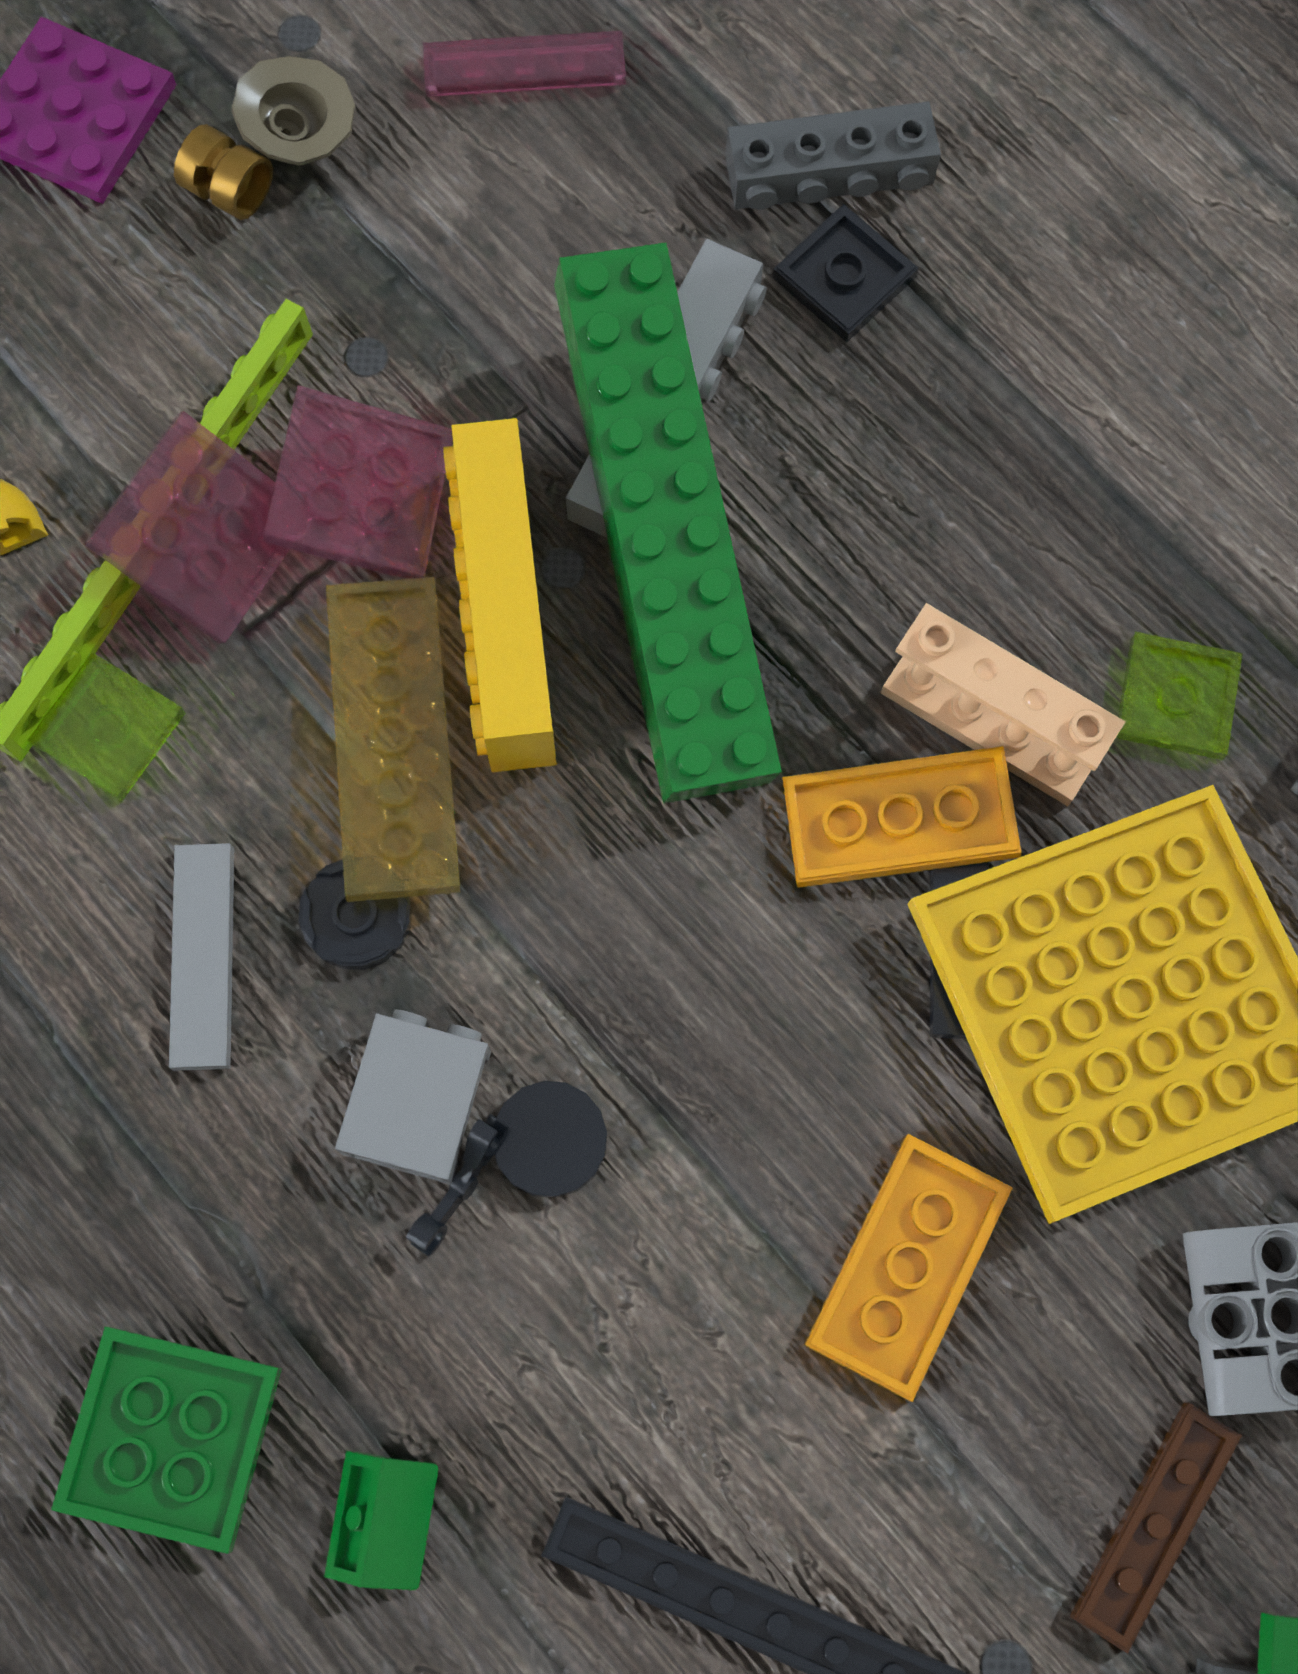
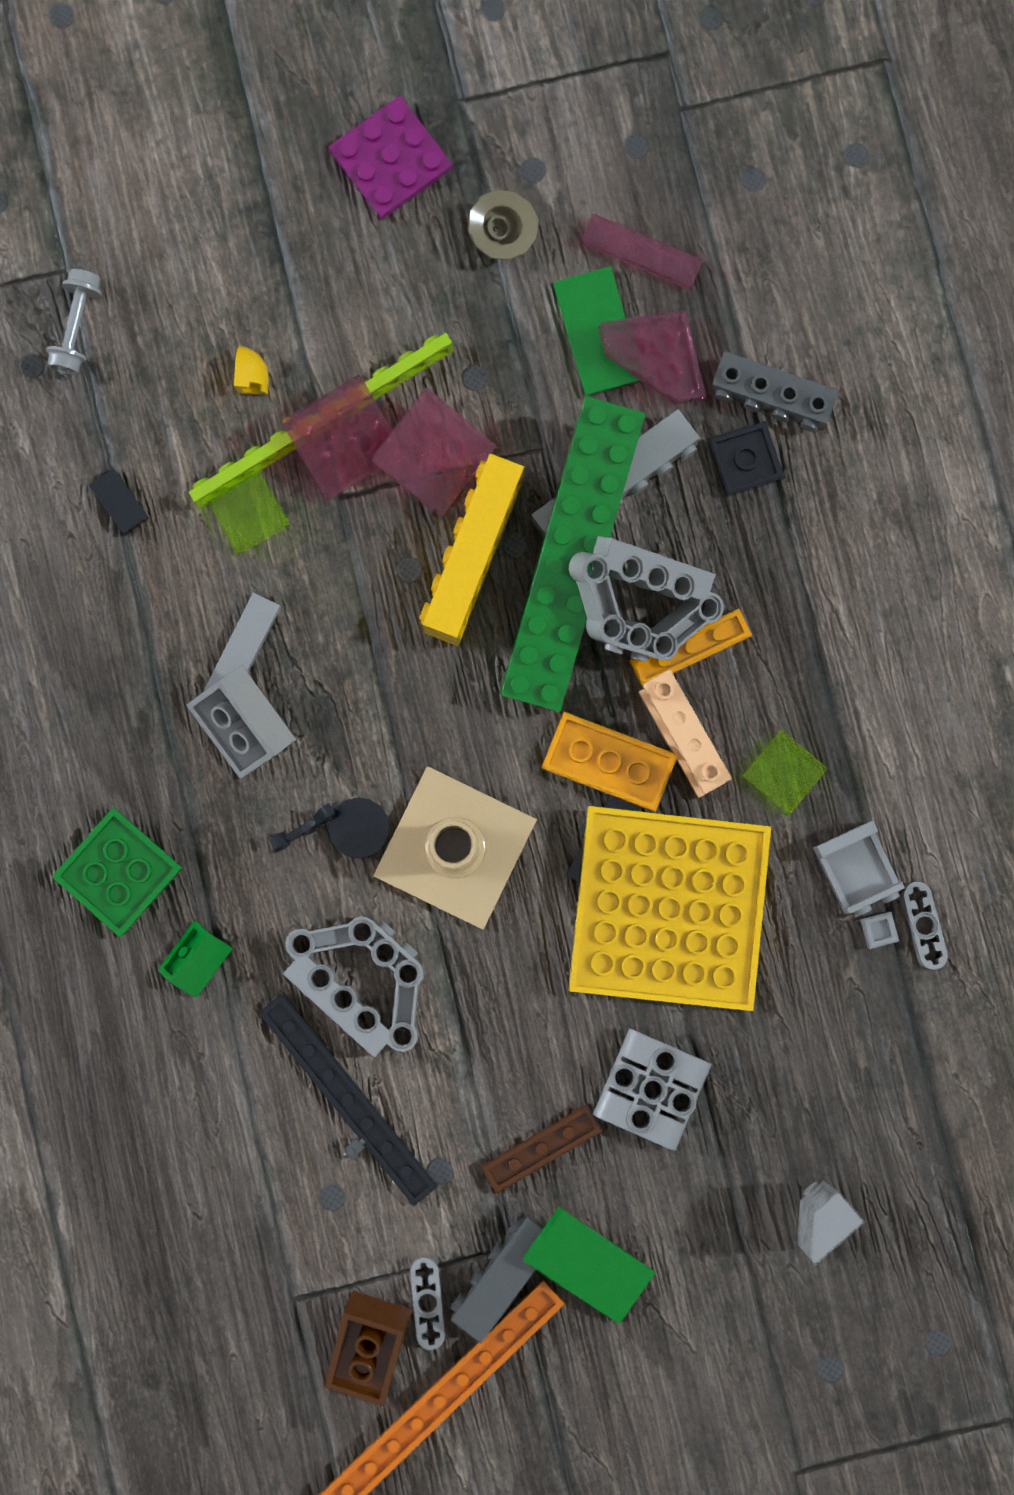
camera: 30 degrees right, 10 degrees up
(222, 171) = (448, 236): pearl gold wheel -> none
(257, 1063) = (241, 722): none -> light grey slope
(355, 932) = (323, 670): black tile -> none
(391, 740) = (383, 592): clear yellow plate -> none
(413, 1096) = (305, 775): light grey panel -> none
(516, 197) = (584, 304): none -> green tile
(628, 182) = (657, 352): none -> clear pink plate
(727, 1089) = (455, 847): none -> tan piece
(756, 476) = (601, 604): none -> light grey brick
(774, 1479) = (406, 993): none -> light grey brick
(908, 1267) = (494, 975): light orange tile -> none
(924, 578) = (706, 642): none -> light orange tile

